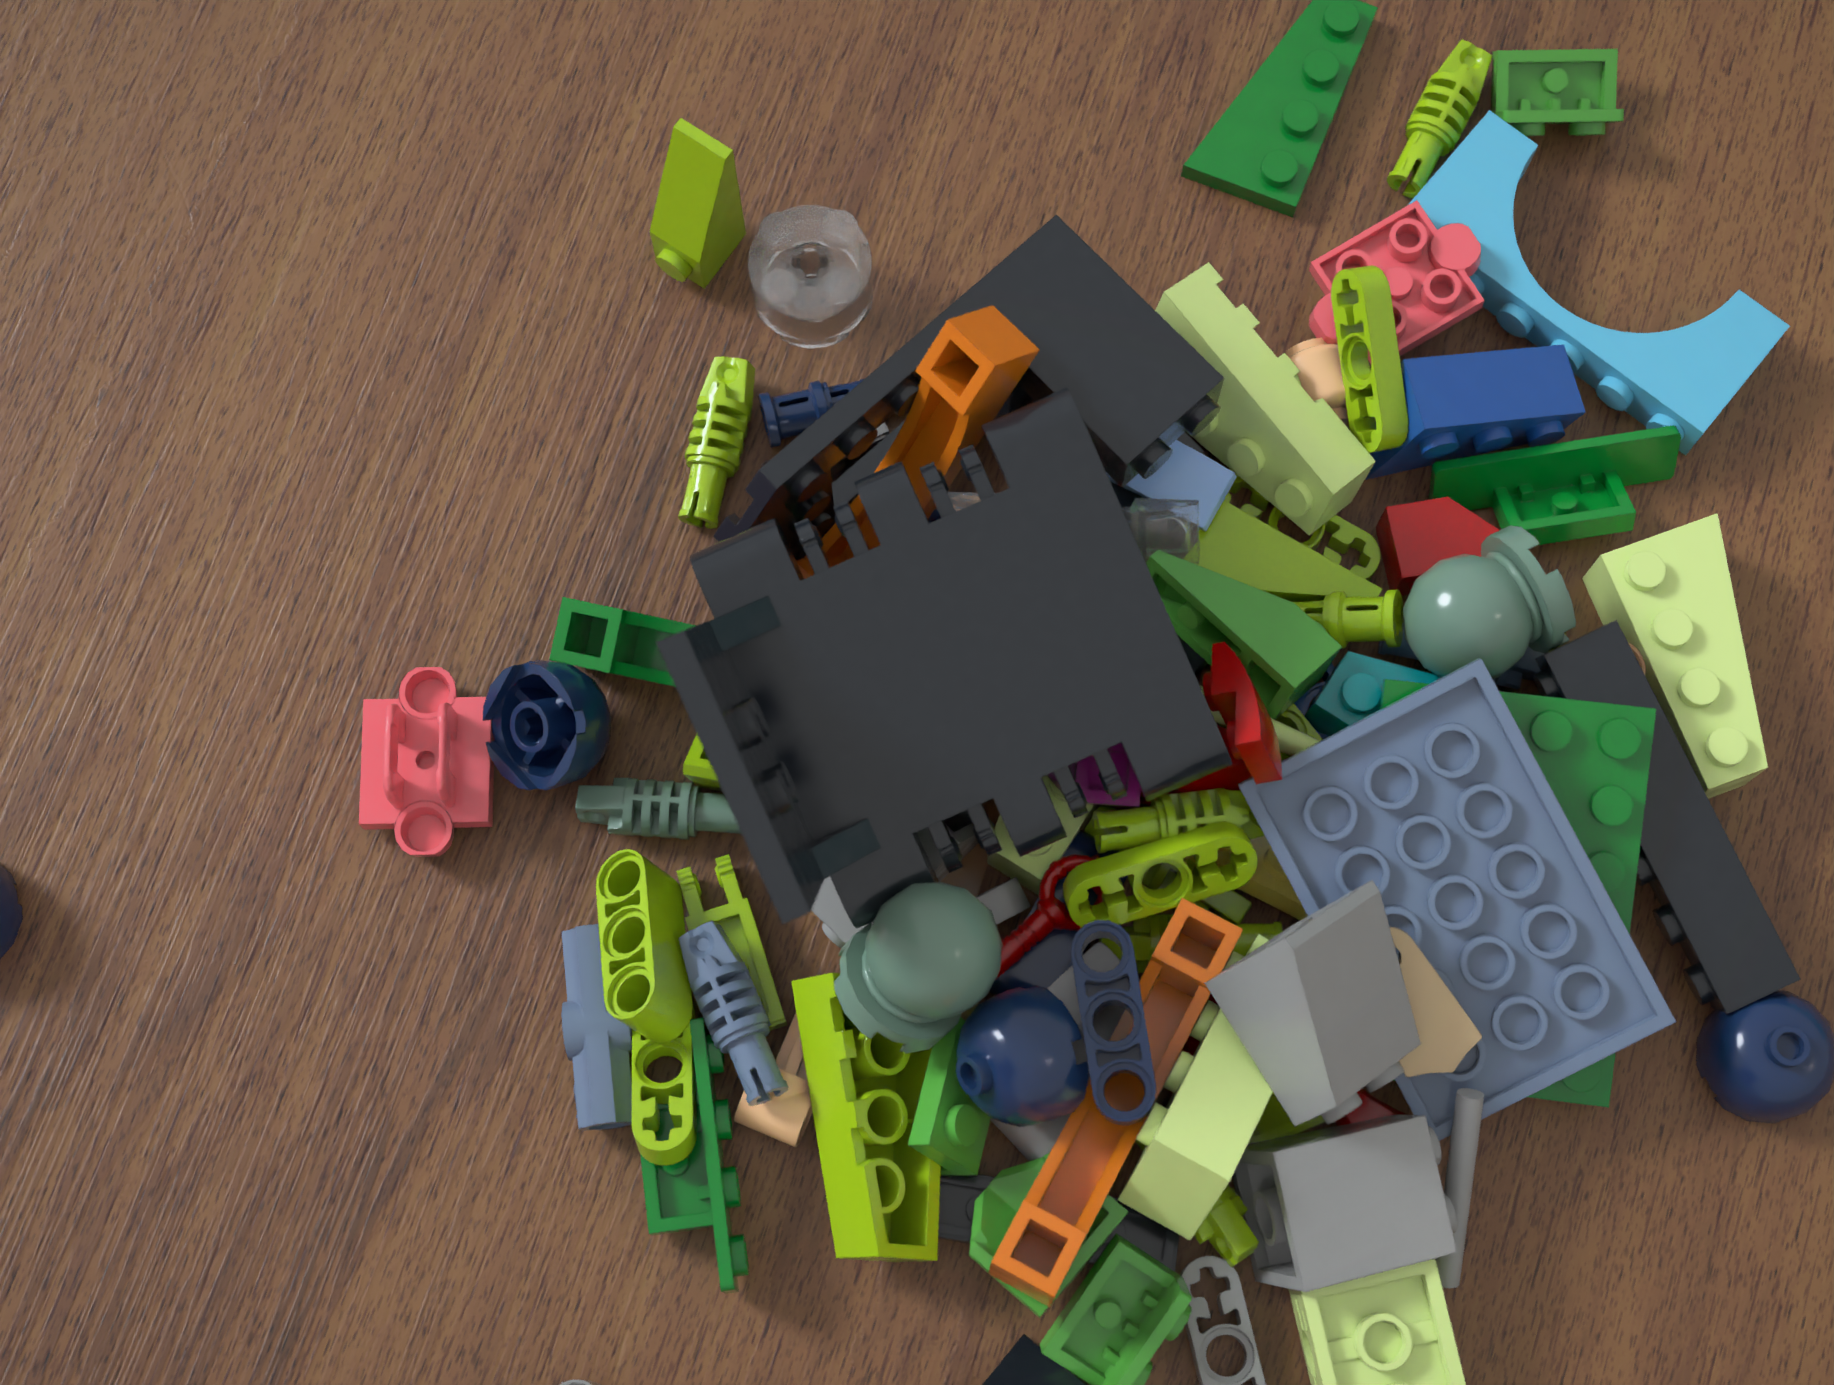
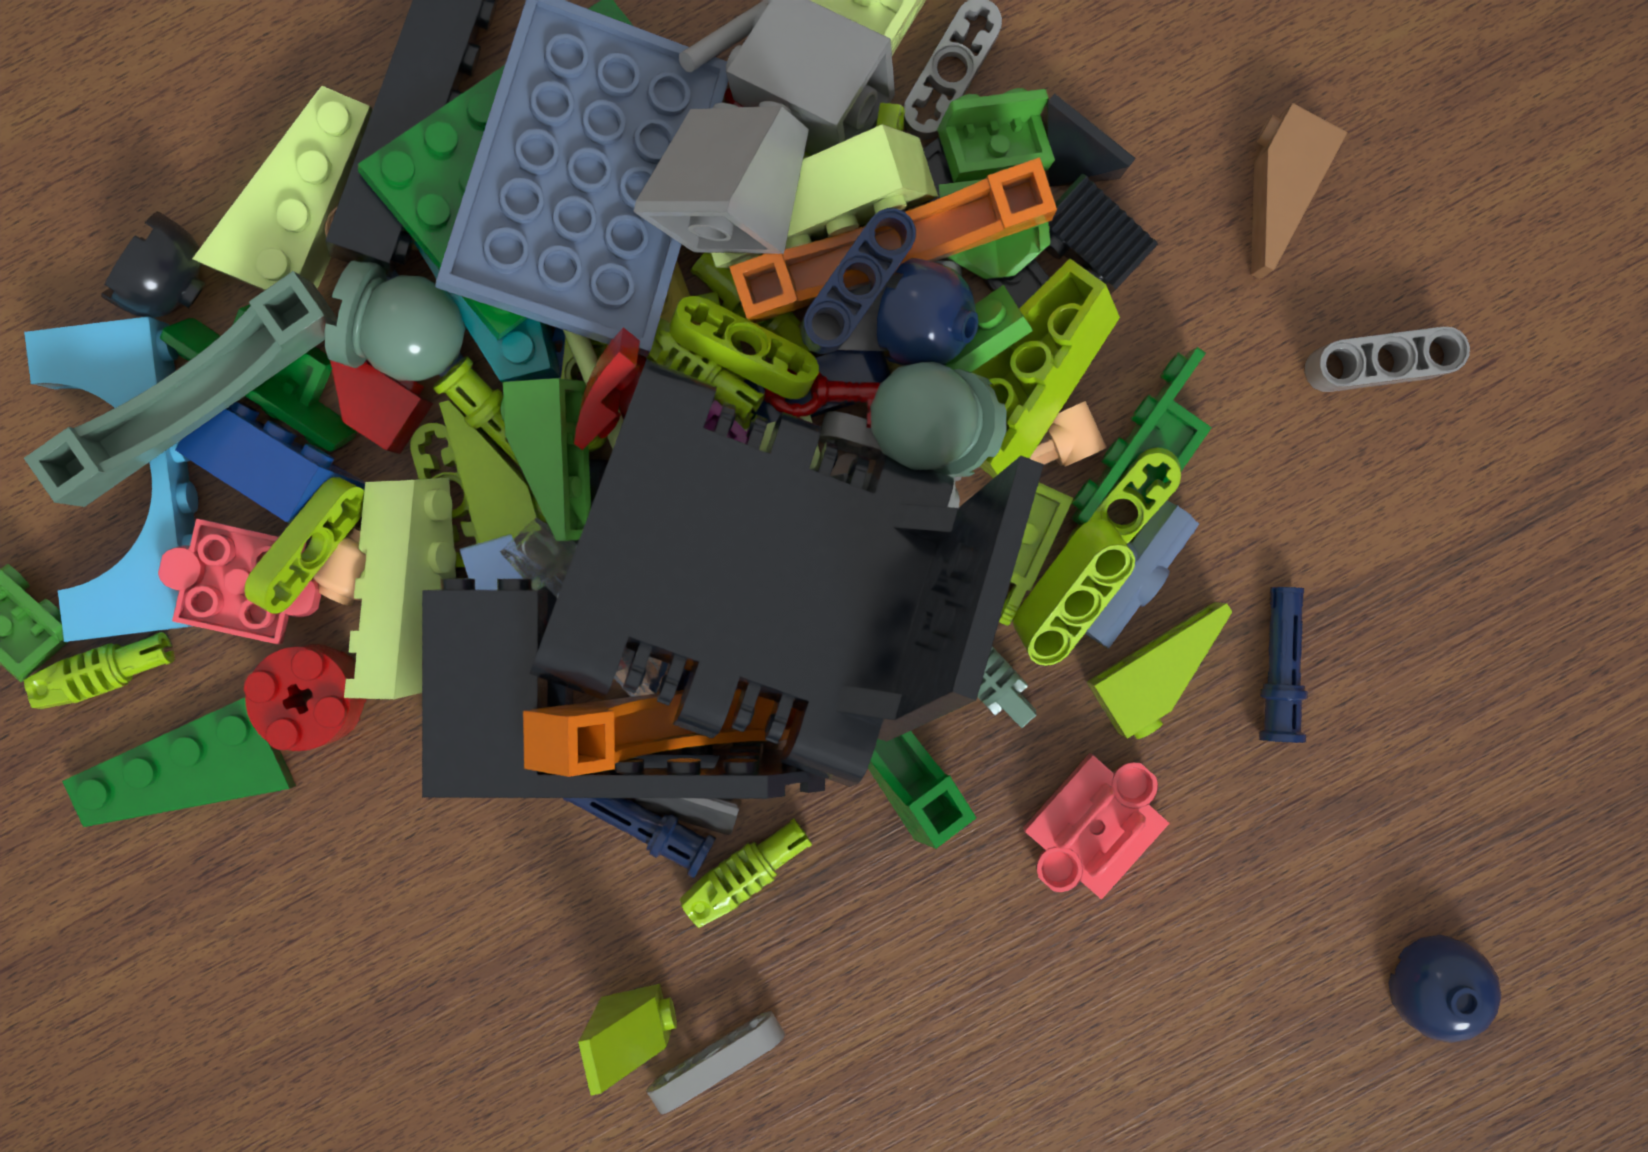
camera: 140 degrees left, 15 degrees up
(355, 1049) = (1284, 689): none -> dark blue pin
(494, 938) = (1155, 676): none -> lime slope
(546, 724) = (1010, 780): dark blue cylinder -> none
(592, 263) = (716, 1062): none -> light grey beam
(732, 1009) = (1056, 507): sand blue hinge -> none
(805, 244) = (593, 956): clear brick -> none
(932, 1314) = (1097, 234): none -> black brick
(1255, 218) = (277, 702): none -> red brick
(1440, 1020) = (663, 115): tan piece -> none
(1583, 480) = (104, 451): none -> sand green arch
(1738, 480) = (156, 271): none -> black cylinder

